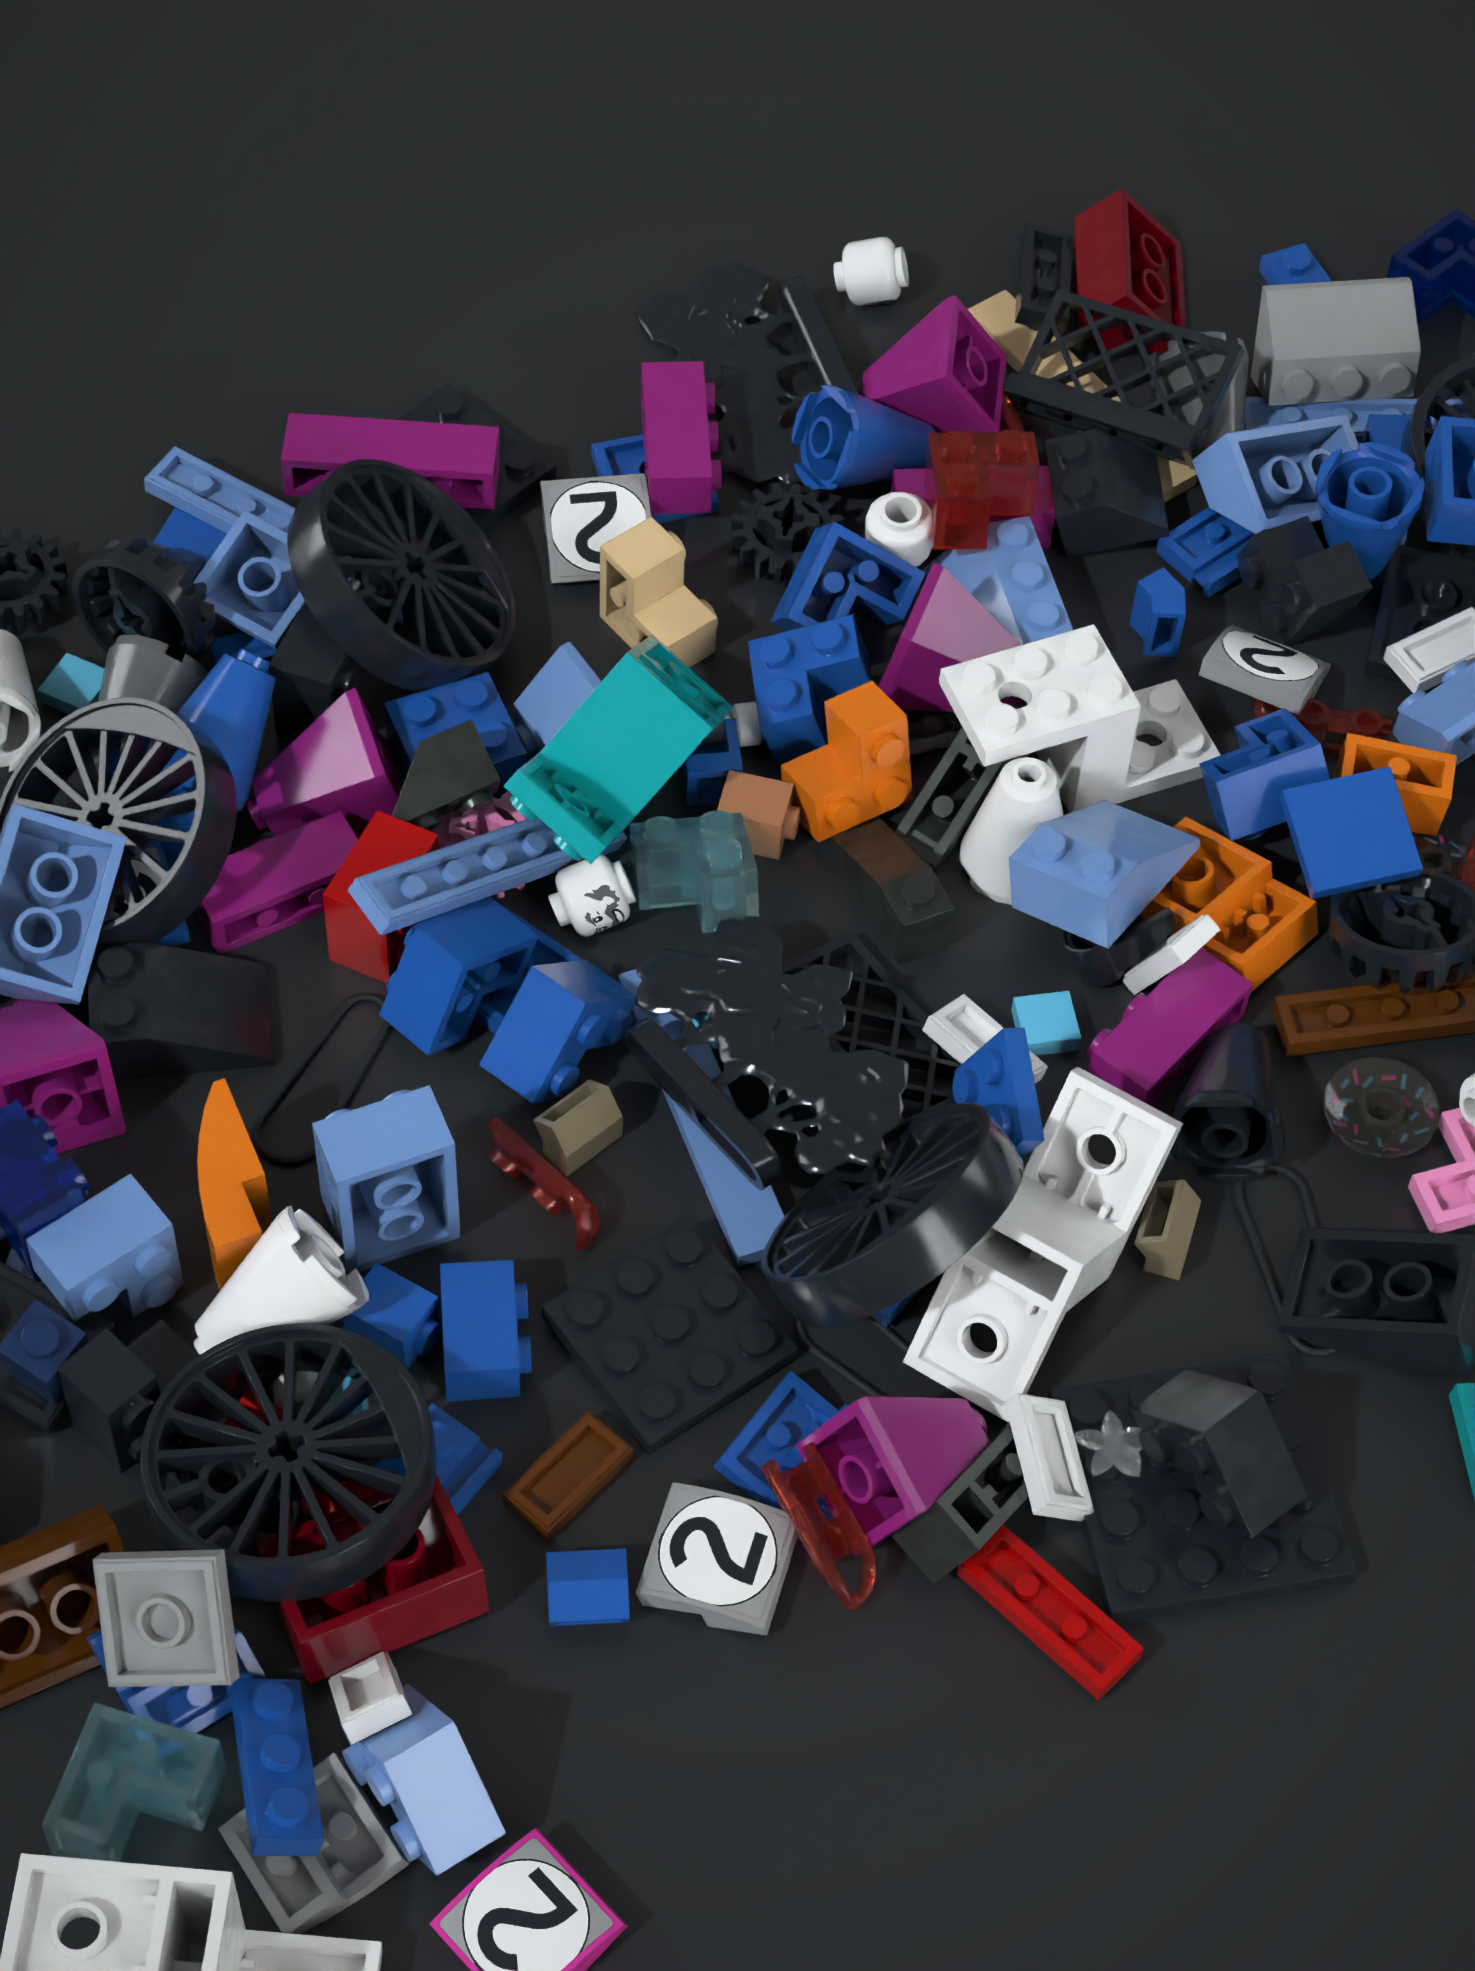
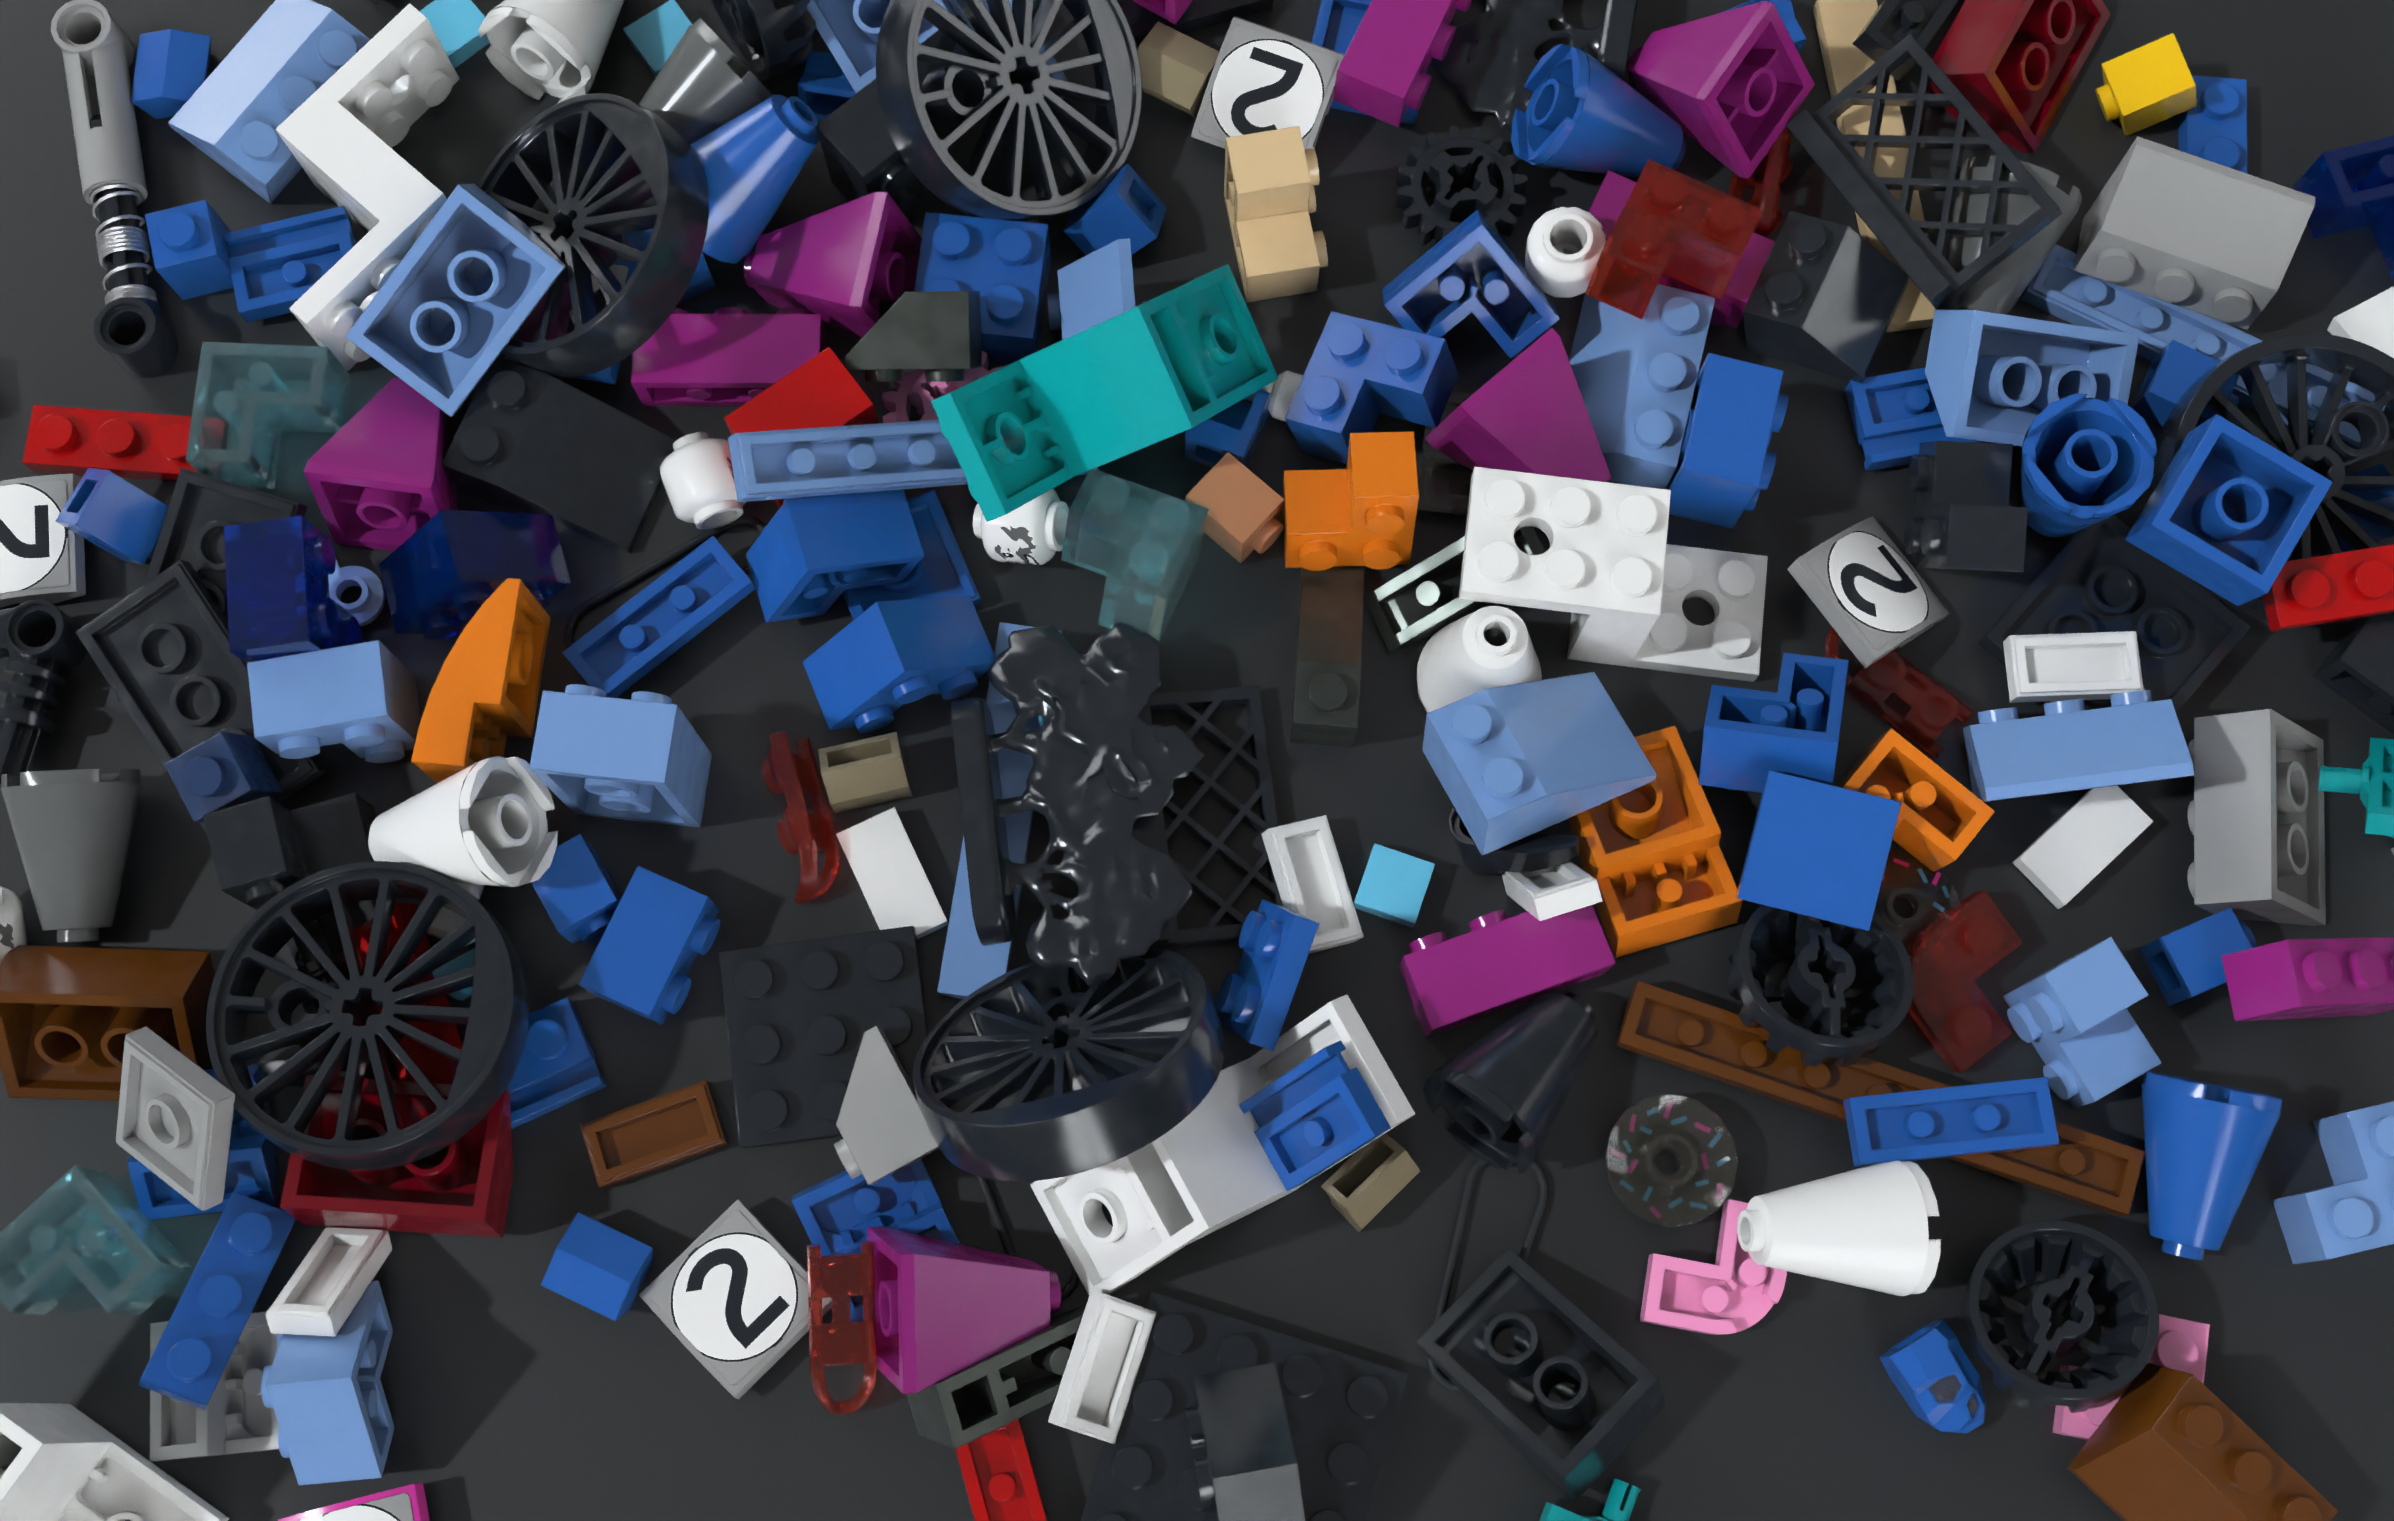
camera: 30 degrees right, 20 degrees up
(149, 1115) = (461, 559): none -> clear blue brick
(314, 974) = (701, 481): none -> white head
(339, 1081) = (660, 619): none -> blue plate
(516, 540) = (1175, 68): none -> dark tan piece
(525, 654) = (1119, 211): none -> blue panel
(642, 1192) = (891, 875): none -> white tile
(761, 1344) = (880, 1114): none -> light grey slope
(1102, 589) = (1727, 441): none -> blue brick
(1107, 1165) = (1315, 1116): none -> blue plate
(1113, 1446) = (1165, 1393): clear plant -> none
(1159, 613) = (1796, 472): blue piece -> none
(1240, 269) = (2147, 85): none -> yellow brick

